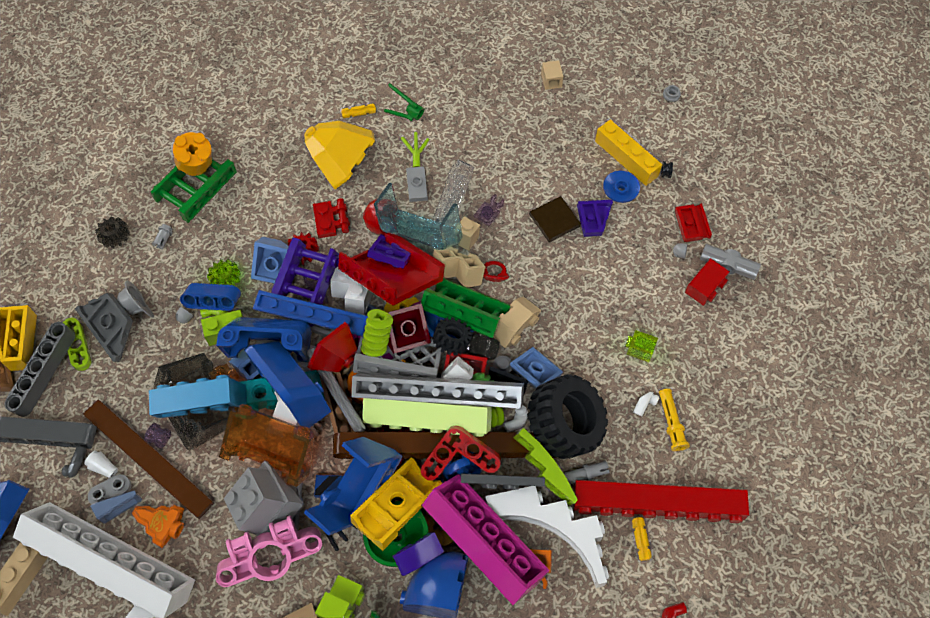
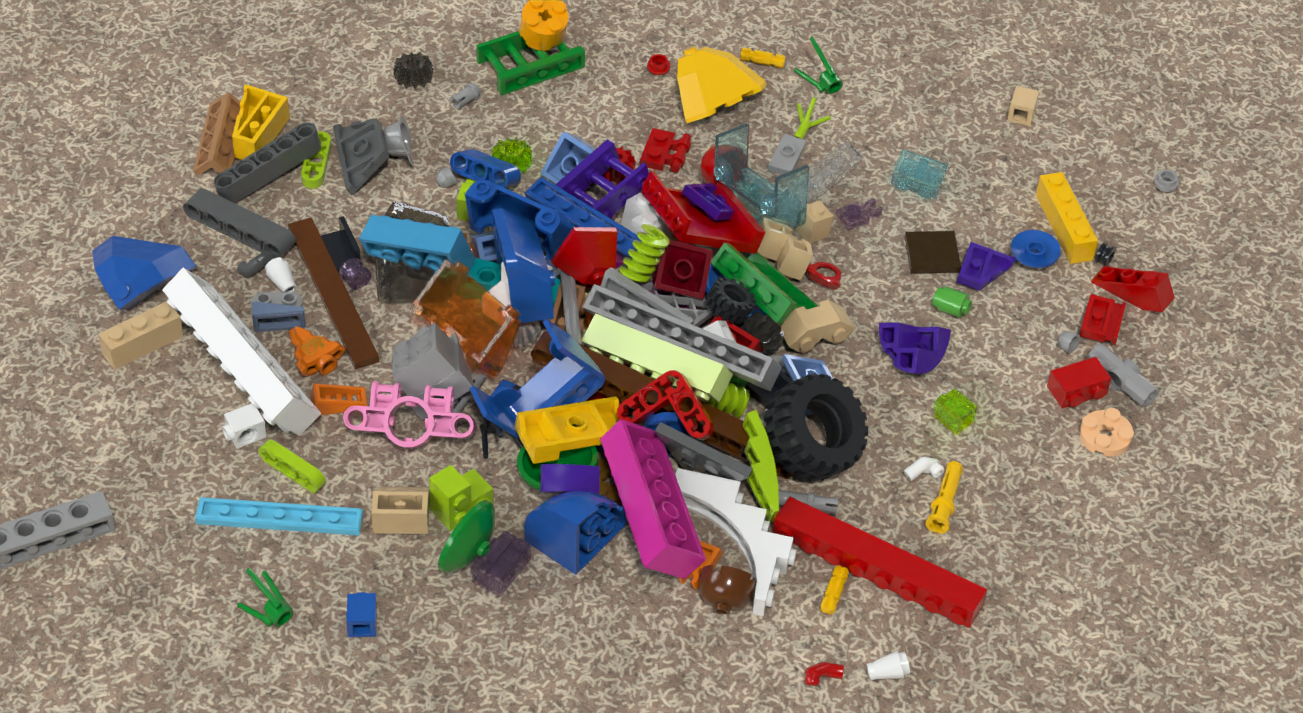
camera: 25 degrees right, 15 degrees down
(134, 416) = (341, 244): none -> black panel
(198, 566) = (322, 394): none -> orange slope
(287, 144) = (658, 64): none -> red plate
(516, 162) = (919, 174): none -> clear light blue brick
(573, 584) = (726, 589): none -> reddish brown cylinder
(586, 305) = (914, 347): none -> dark purple brick
(591, 255) = (952, 301): none -> bright green brick
(701, 187) = (1141, 288): none -> red slope
(714, 587) = (889, 667): none -> white cone
(751, 305) = (1109, 420): none -> light nougat plate

